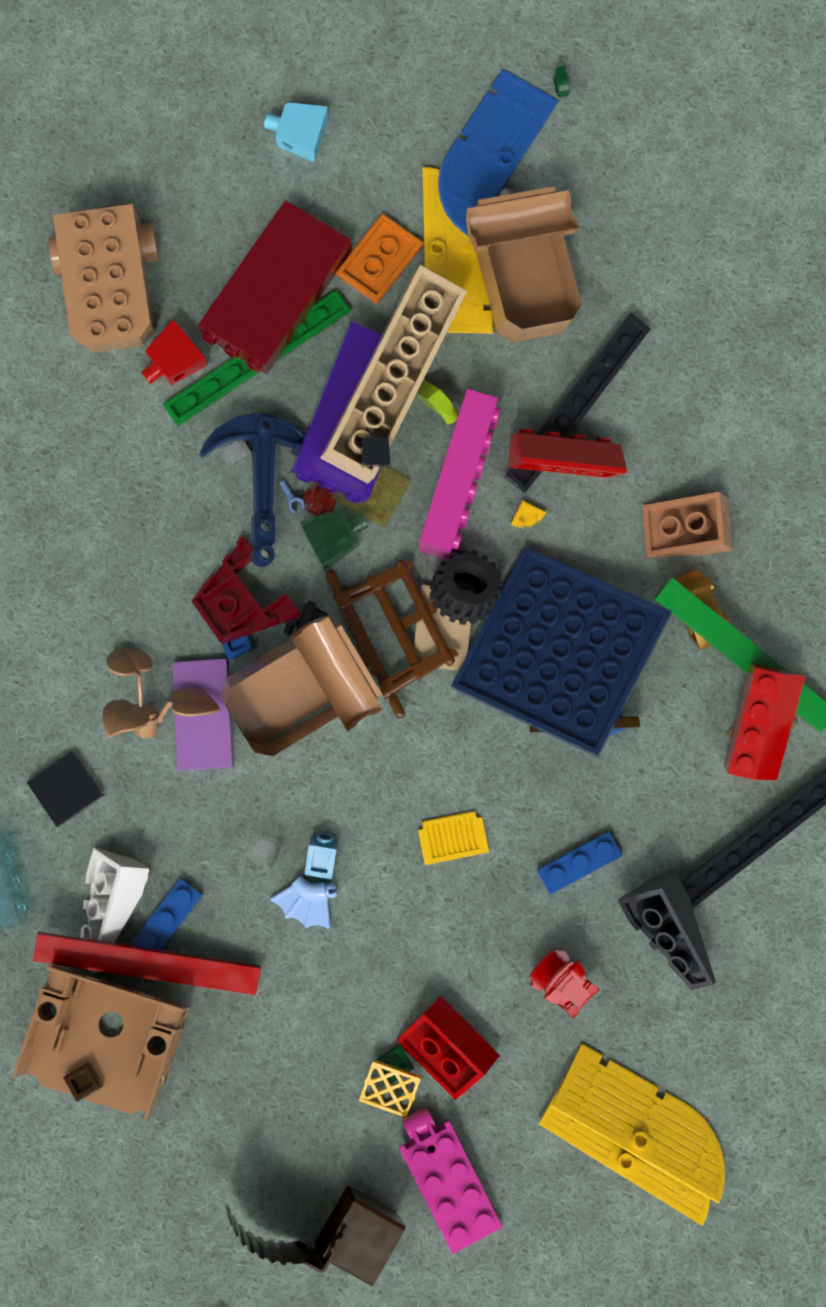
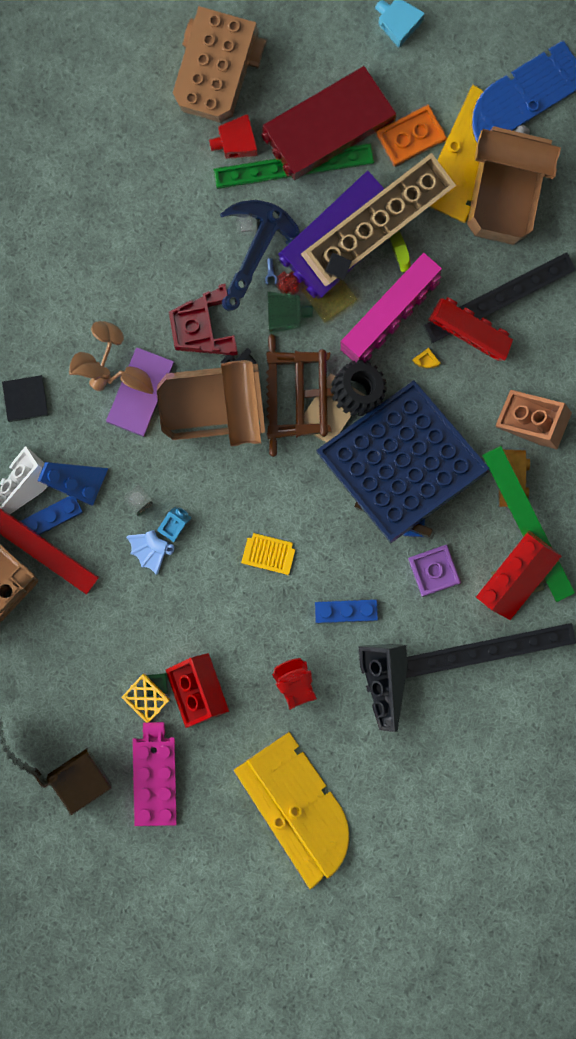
camera: 35 degrees right, 0 degrees up
(174, 862) = (74, 480): none -> blue wing
(238, 647) = (185, 357): blue tile -> none
(659, 763) = (434, 570): none -> medium lavender tile

